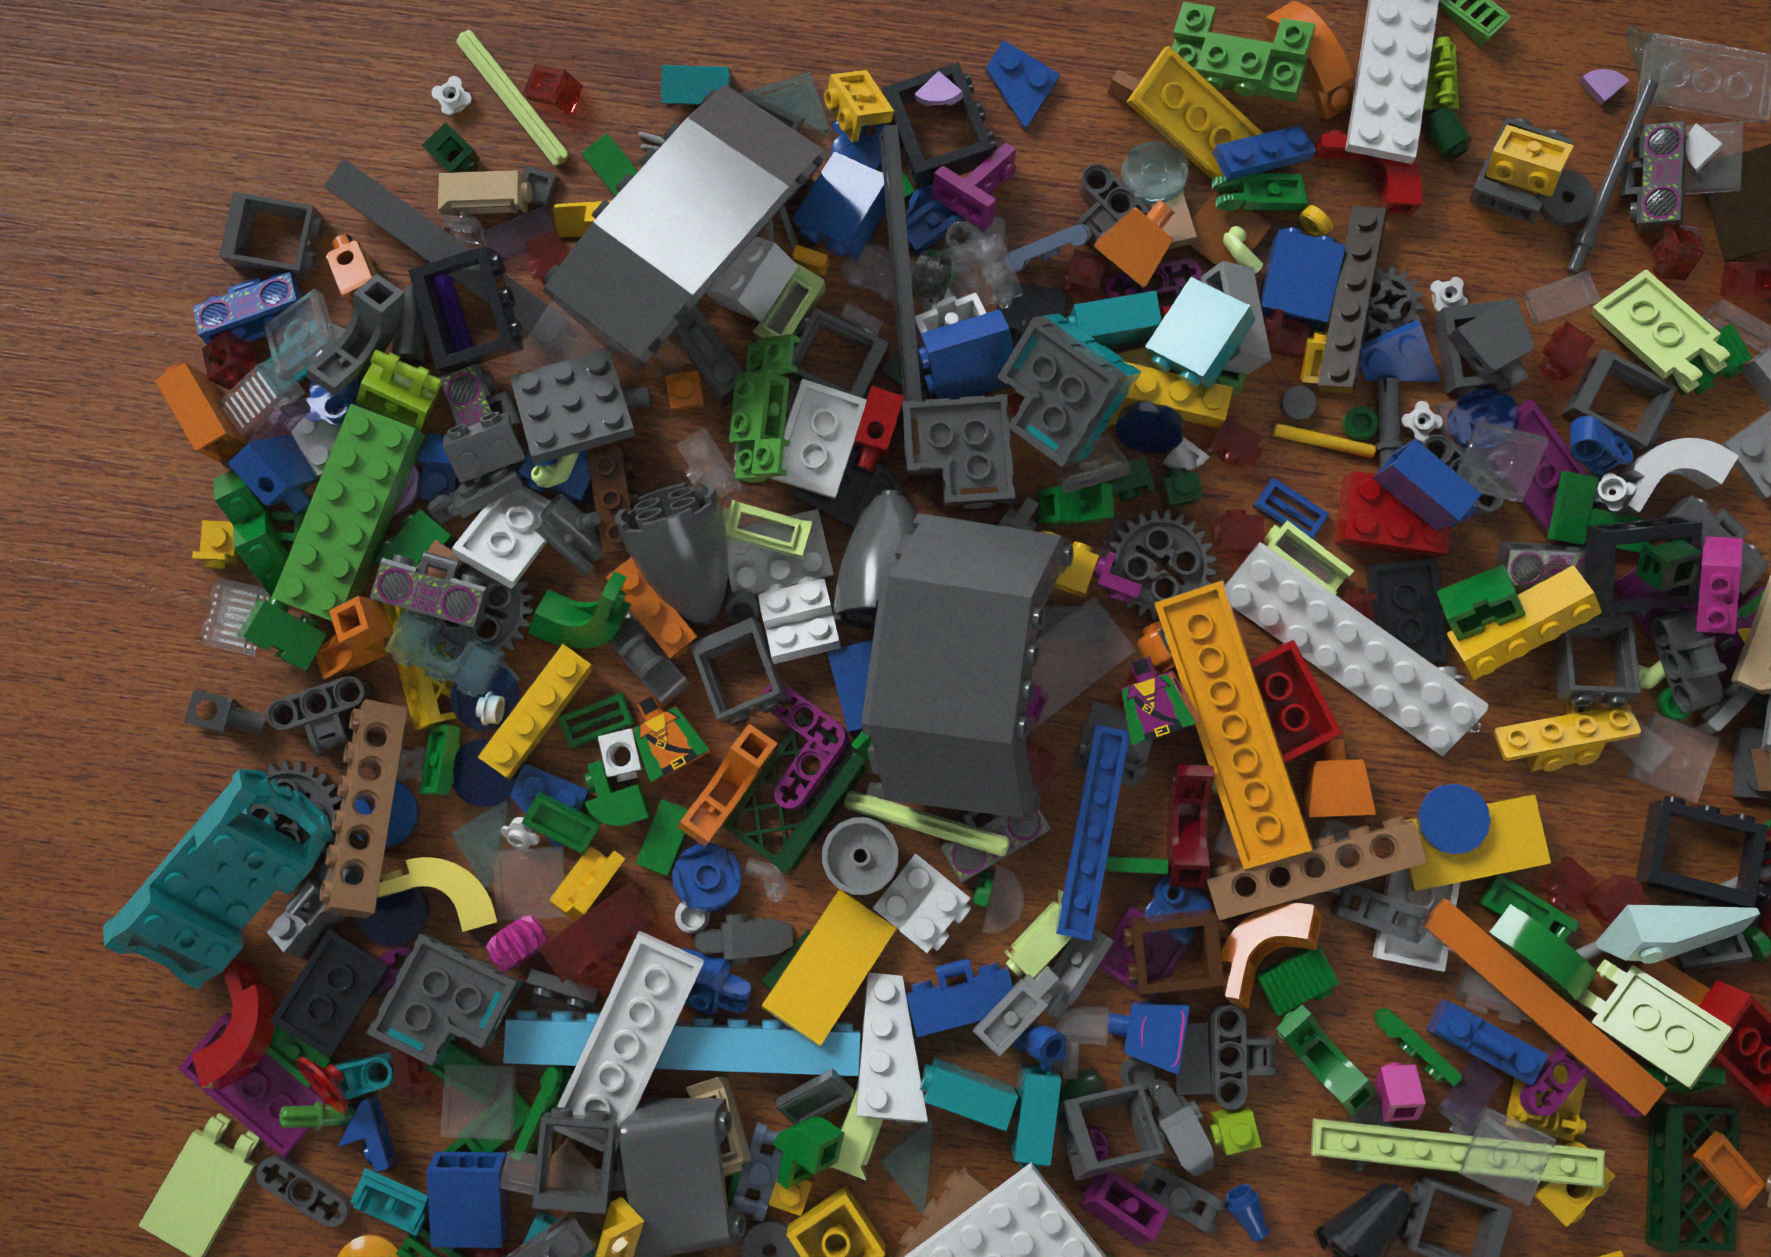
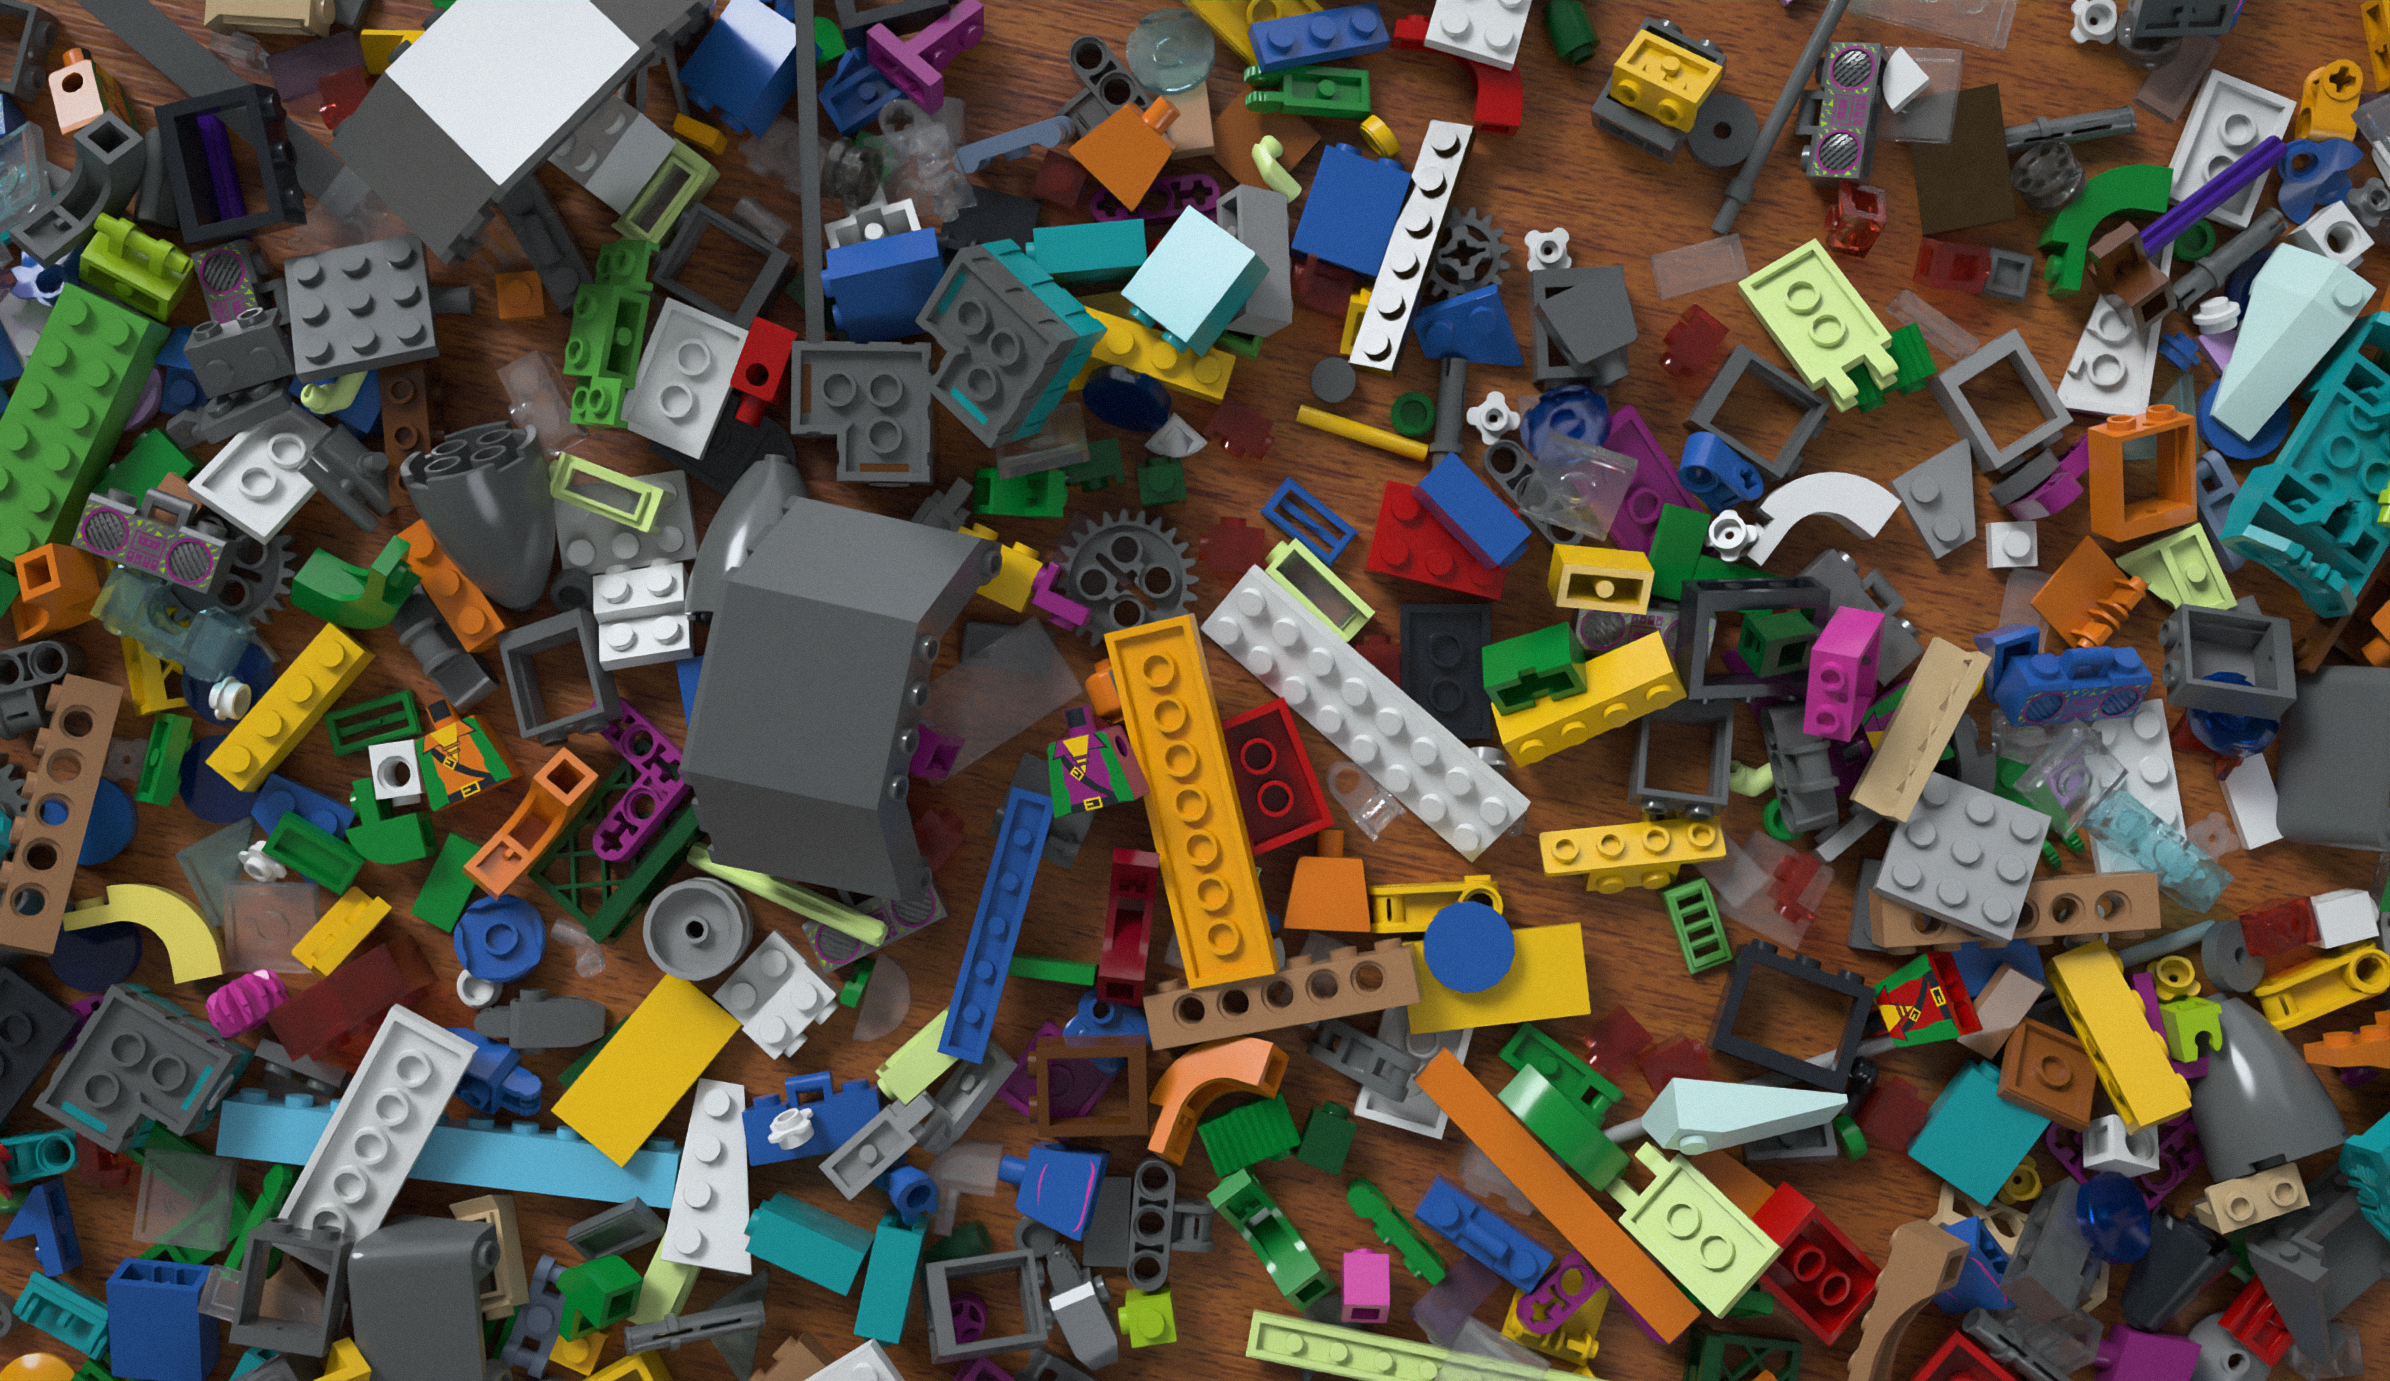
camera: 10 degrees right, 5 degrees up
(847, 1178) = (640, 1339): none -> dark grey pin
(949, 1003) = (791, 1128): none -> white plate
(1356, 976) = (1326, 1136): none -> dark green brick
(1360, 718) = (1365, 800): none -> clear piece
(1407, 792) = (1417, 903): none -> yellow piece
(1523, 531) = (1600, 579): none -> yellow brick
(1602, 784) = (1682, 890): none -> bright green slope
(1690, 749) = (1792, 877): none -> clear red bracket

